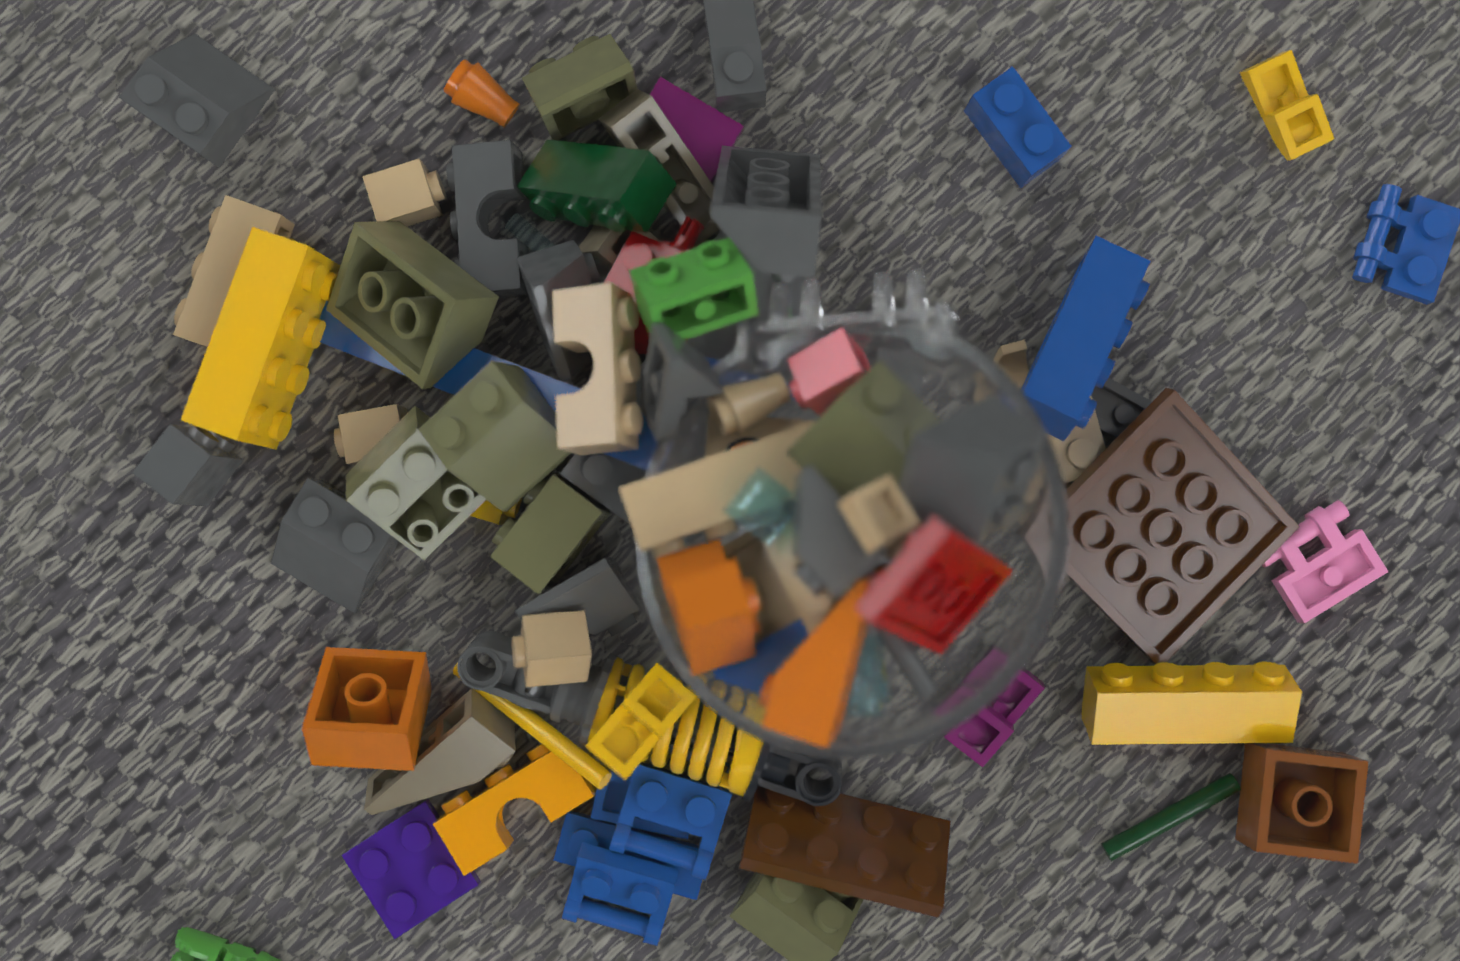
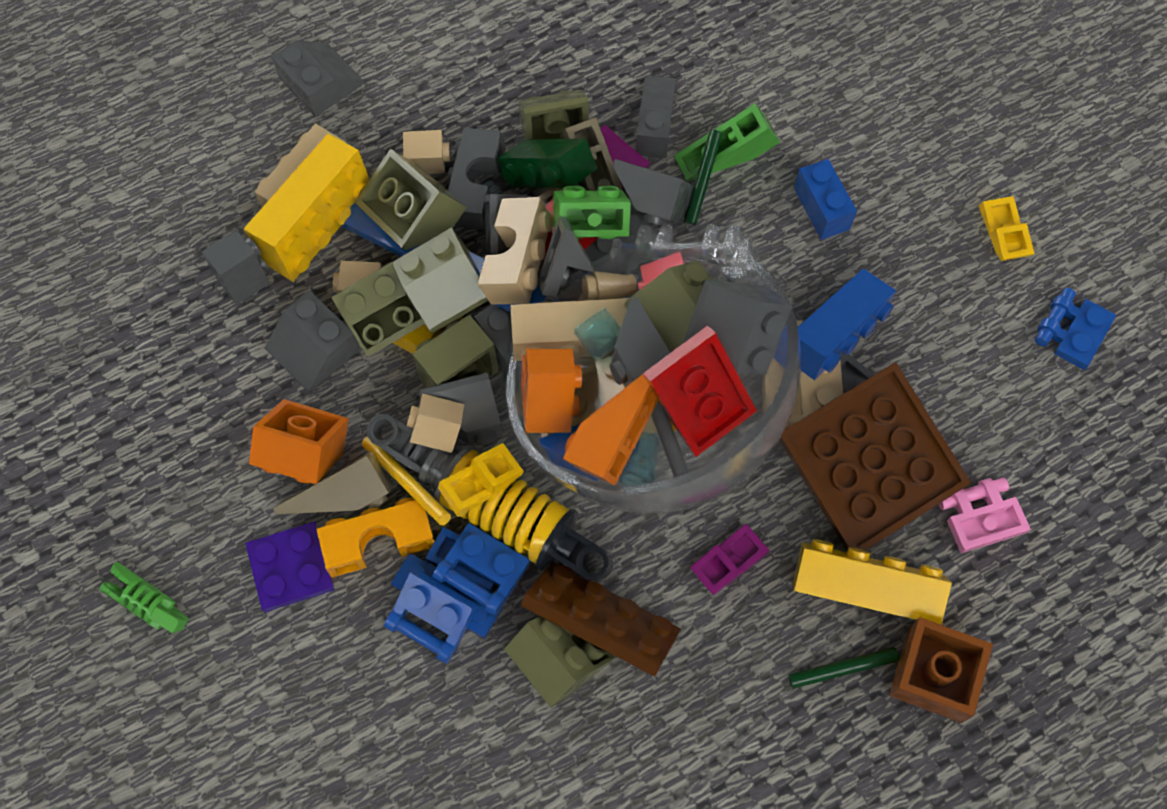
camera: 15 degrees right, 20 degrees down
(480, 93) = (488, 107): orange cone -> none
(830, 131) = (703, 177): none -> dark green bar
(854, 68) = (742, 140): none -> bright green slope
(878, 513) = (670, 329): tan plate -> none

